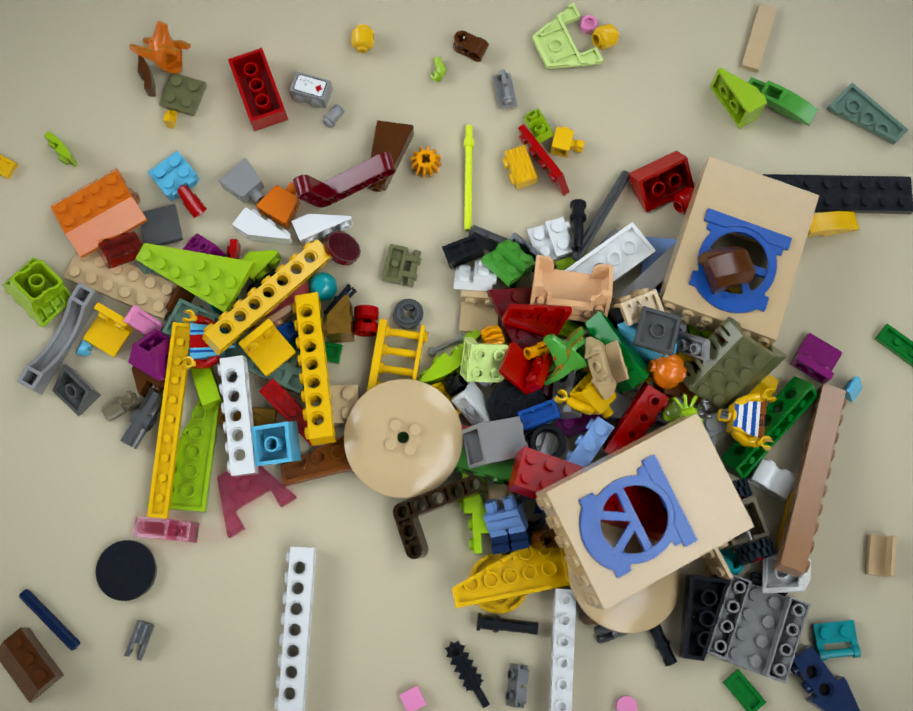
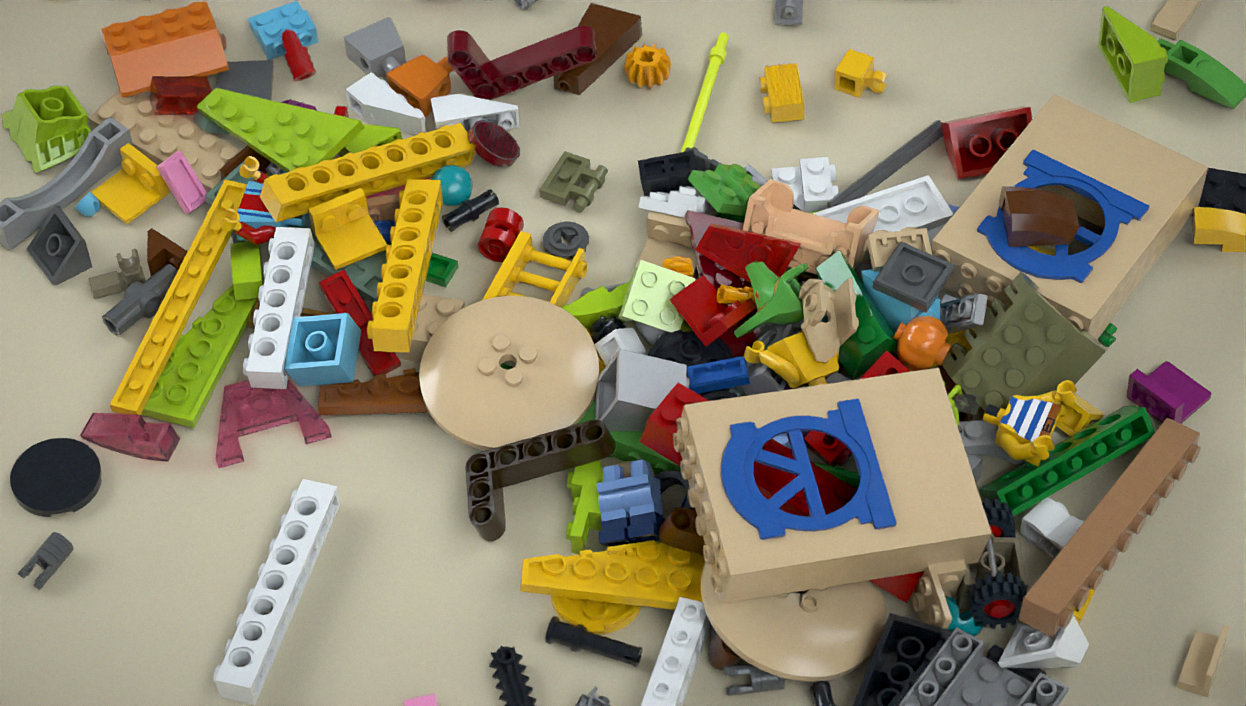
camera: 15 degrees right, 25 degrees down
(151, 354) = (179, 215): magenta slope -> none
(340, 322) = (462, 225): pearl gold slope -> none
(538, 125) = (824, 47): lime slope -> none
(544, 159) = (821, 88): red wing -> none
(577, 218) = (849, 163): black pin -> none
(853, 388) = (1216, 441): medium azure slope -> none

